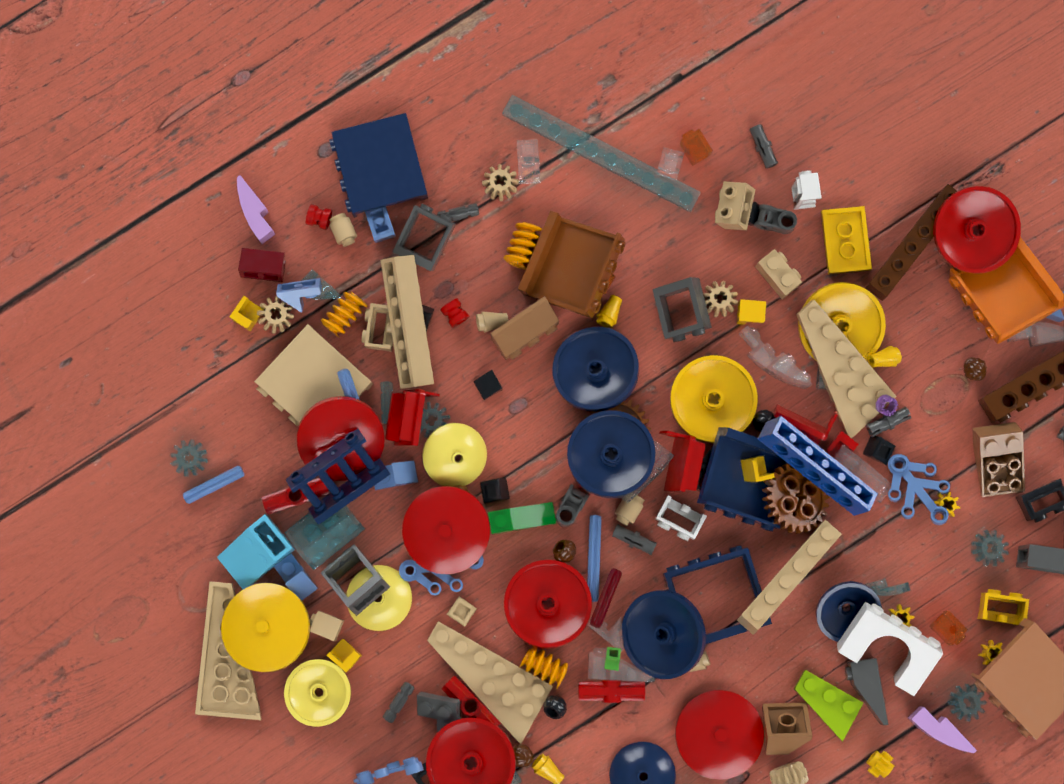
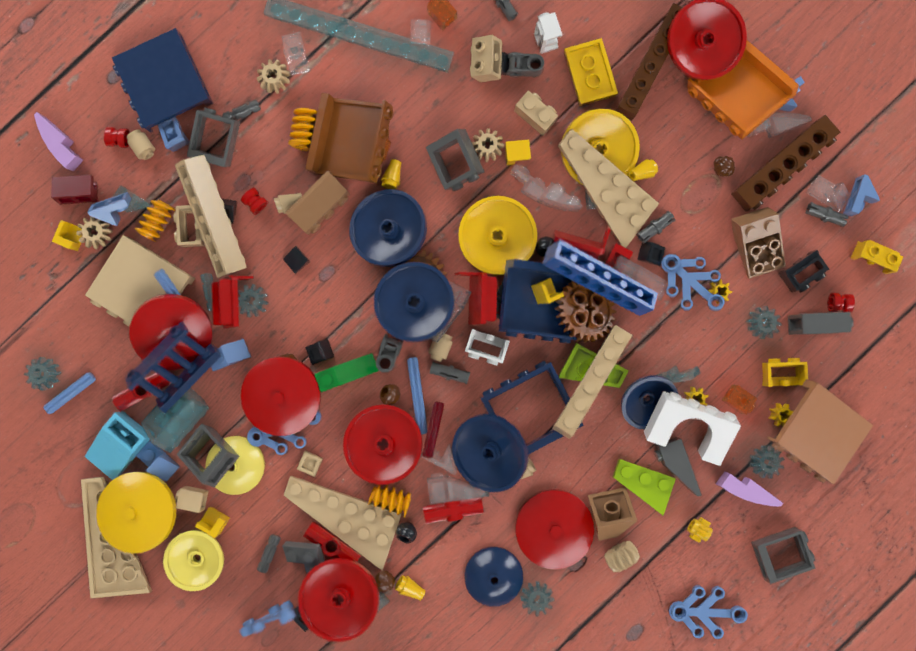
camera: 10 degrees left, 5 degrees up
(444, 445) = (267, 318): light yellow dish -> none
(612, 658) = (448, 484): bright green piece -> none
(777, 556) = (579, 363): none -> lime wing
(890, 409) = (656, 215): medium lavender bush -> none

